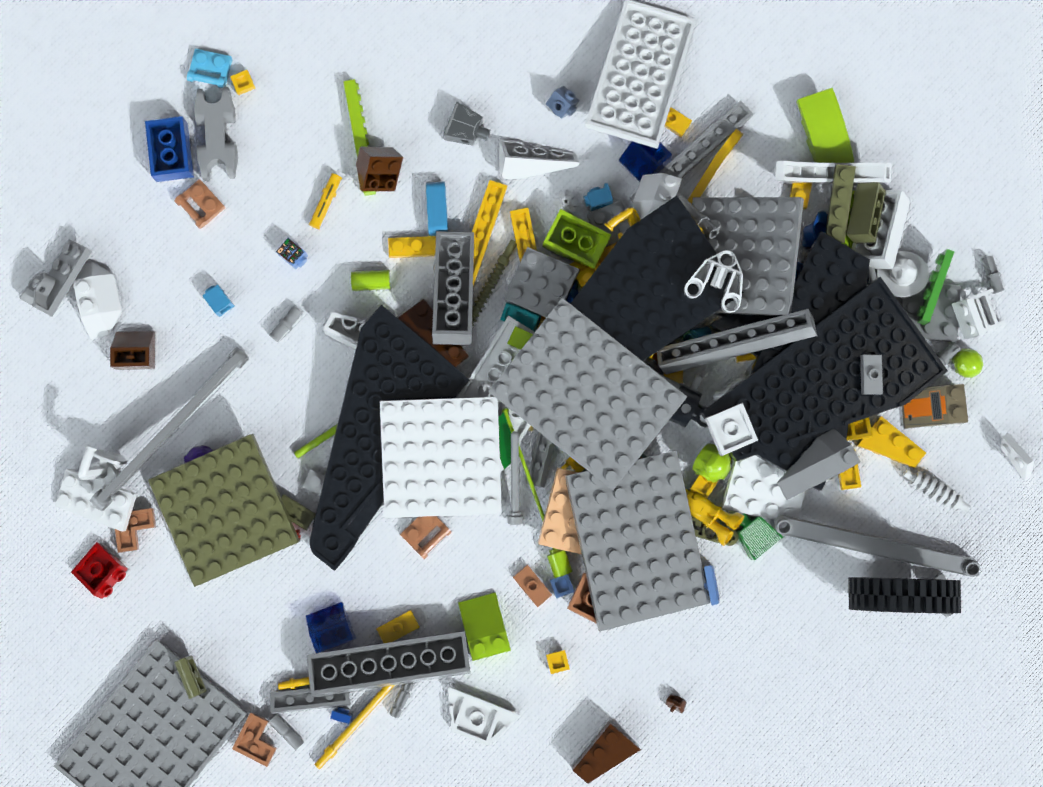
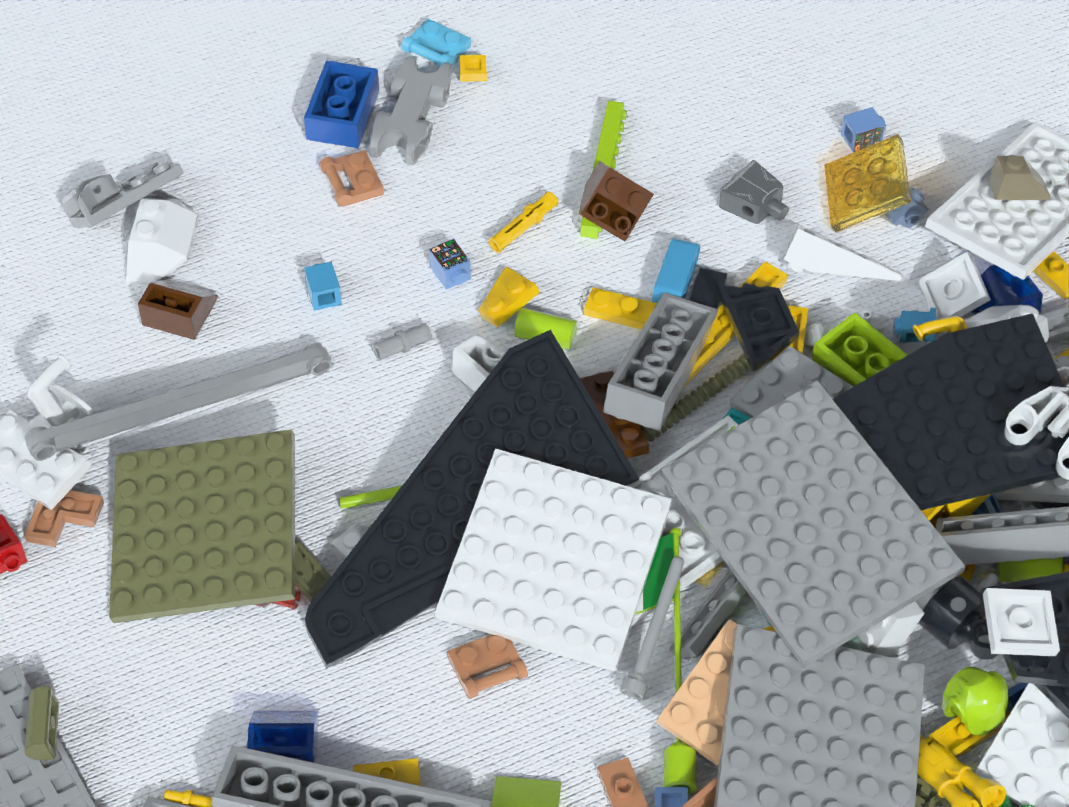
camera: 25 degrees right, 30 degrees down
(337, 266) = (507, 297): none -> yellow wing
(460, 214) = (704, 287): none -> black tile
(502, 232) = (759, 320): none -> black wing
(517, 45) = (862, 129): none -> medium blue brick
(535, 95) = (867, 183): none -> clear yellow plate
(540, 226) = (814, 333): none -> white plate
(614, 161) = (954, 288): none -> white plate
(632, 67) = (1016, 180): none -> dark tan slope

